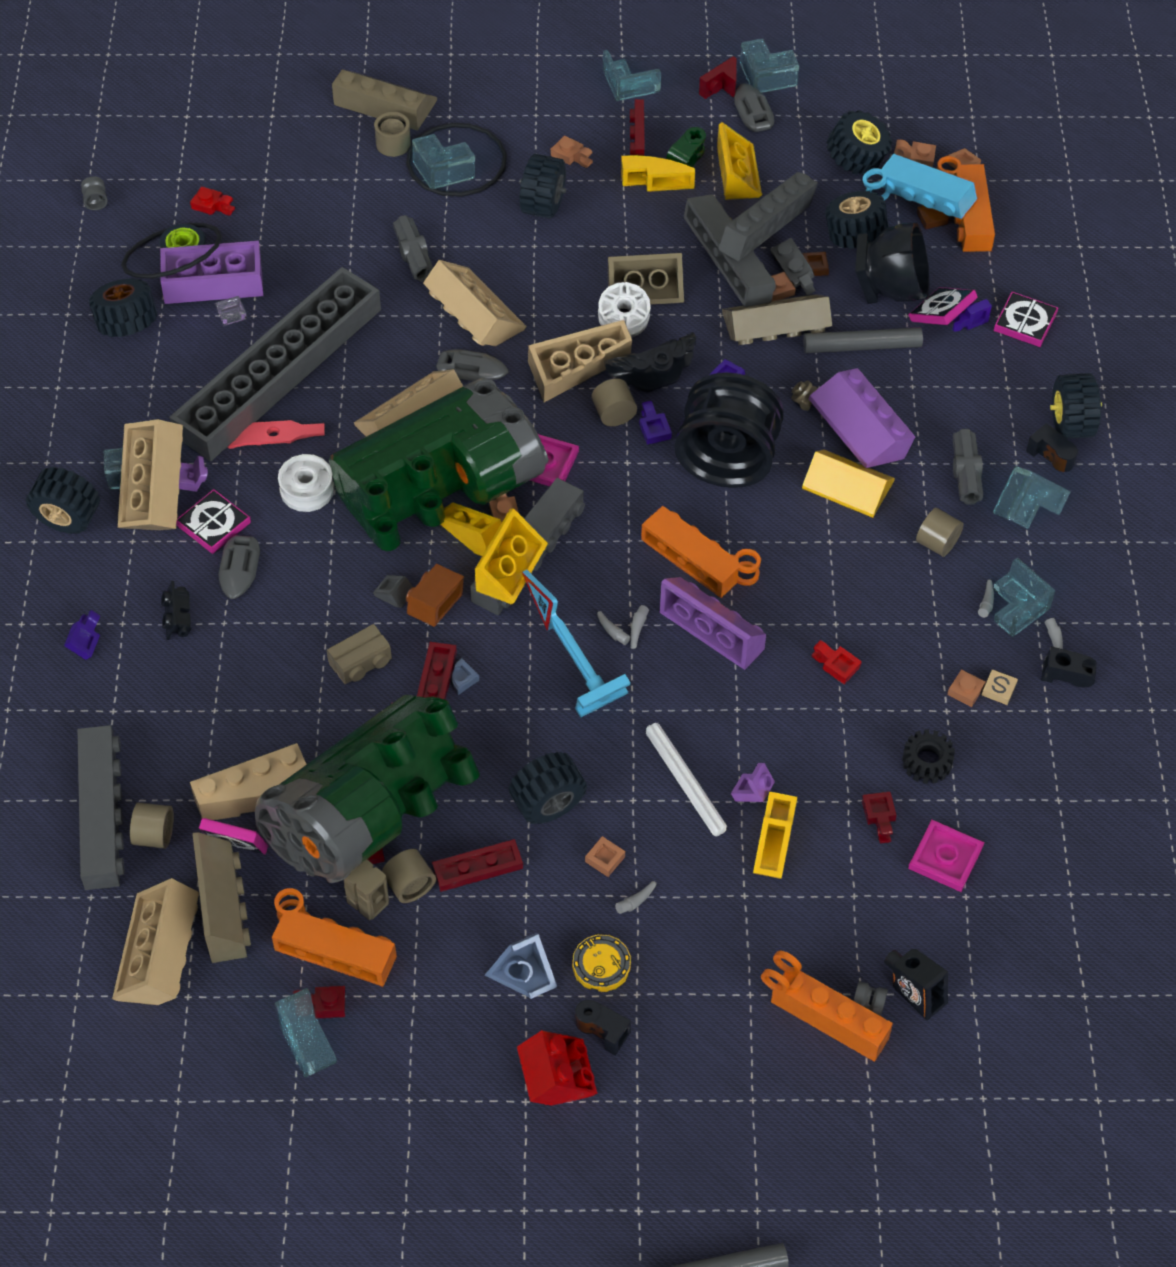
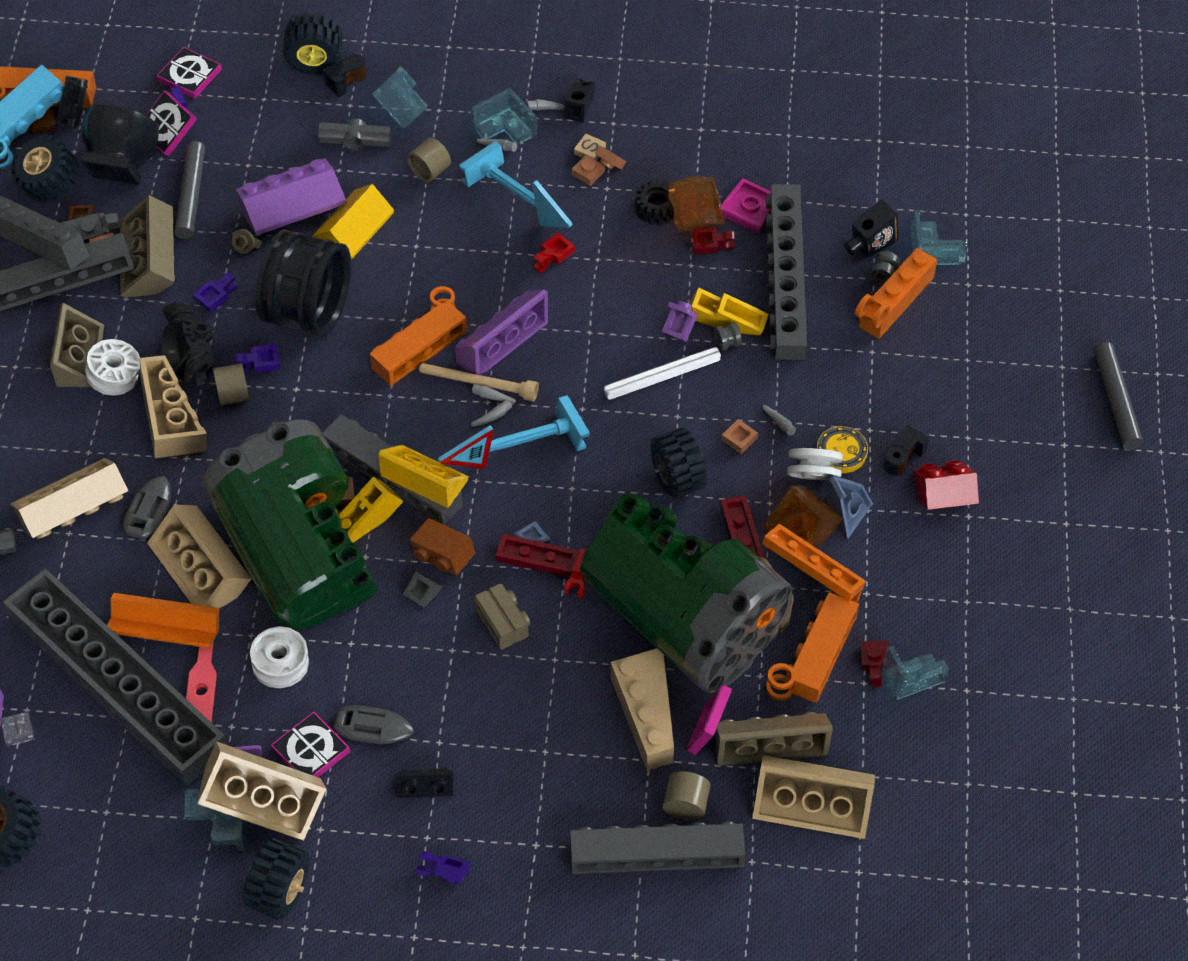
camera: 85 degrees left, 0 degrees up
(338, 392) = (164, 620): none -> orange panel
(430, 927) = (815, 563): none -> orange panel
(496, 922) = (805, 516): none -> clear orange slope
(559, 922) = (814, 463): none -> white wheel
(644, 654) = (527, 389): none -> tan piece
(741, 836) = (727, 336): none -> dark grey wheel
(857, 898) = (786, 235): none -> dark grey brick
(916, 1048) = (926, 239): none -> clear light blue panel
(921, 789) = (696, 203): none -> clear orange slope
(943, 583) = (487, 163): none -> medium azure piece
(949, 225) = (72, 101): none -> black hinge
(984, 704) = (609, 158): none -> nougat plate

